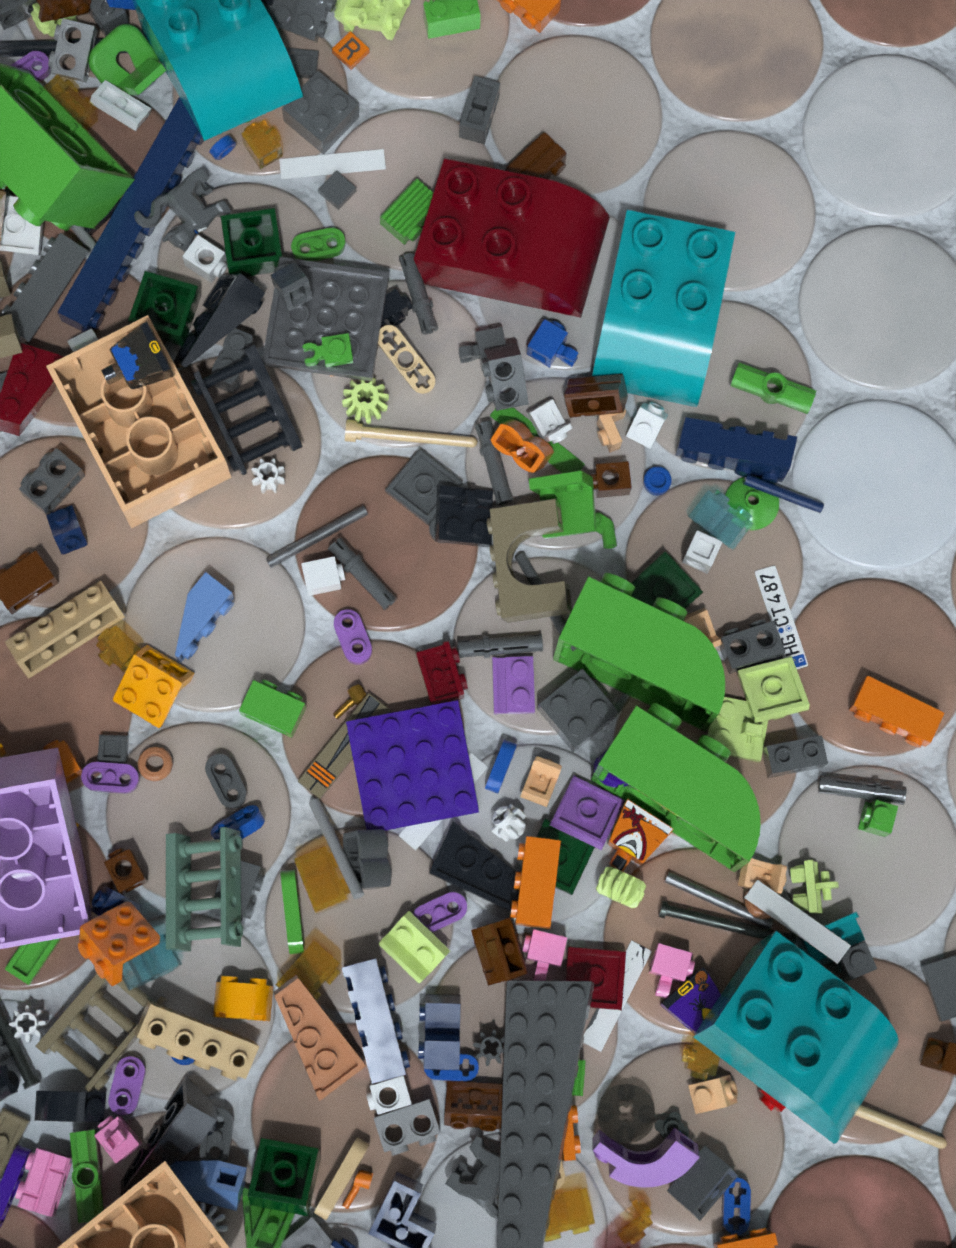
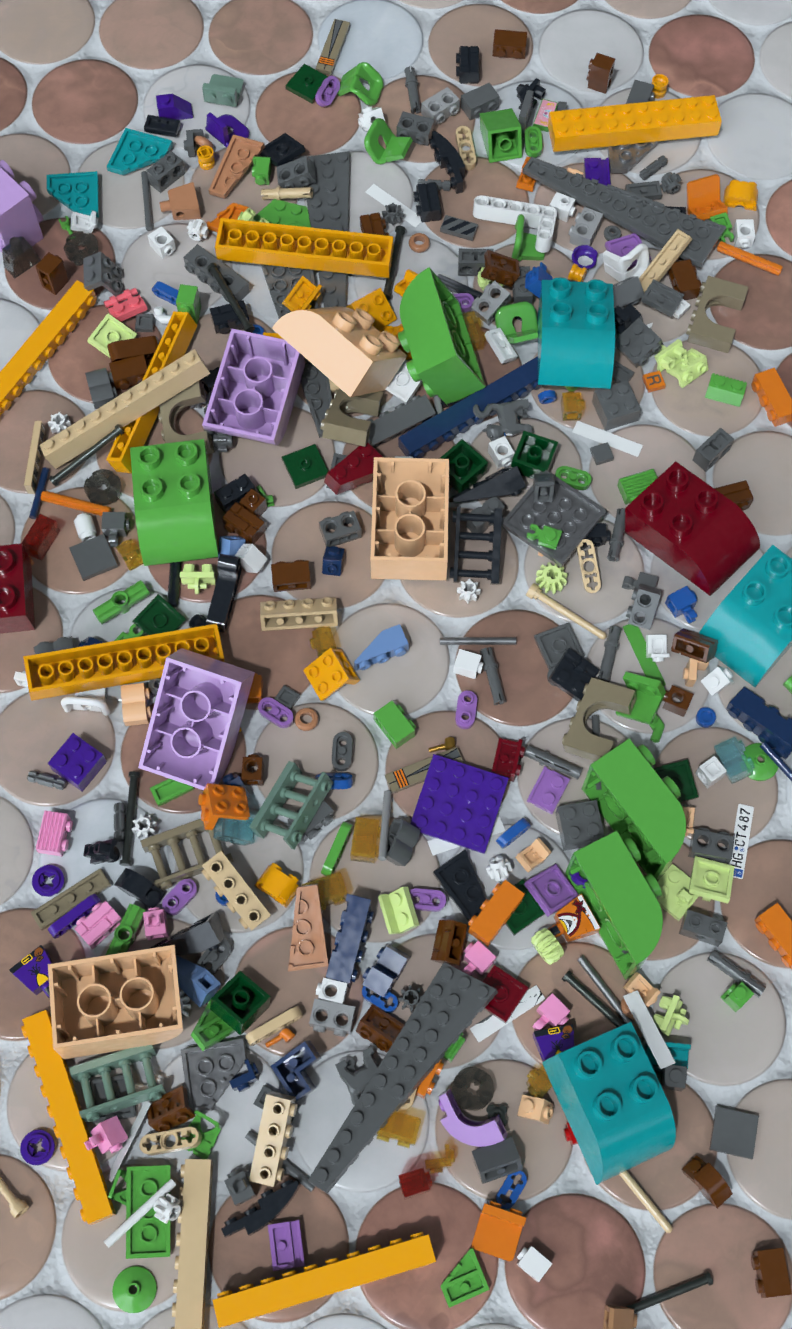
camera: 35 degrees right, 10 degrees down
(138, 359) = (429, 479): clear smoke torso -> none
(517, 441) = (632, 651): orange brick -> none

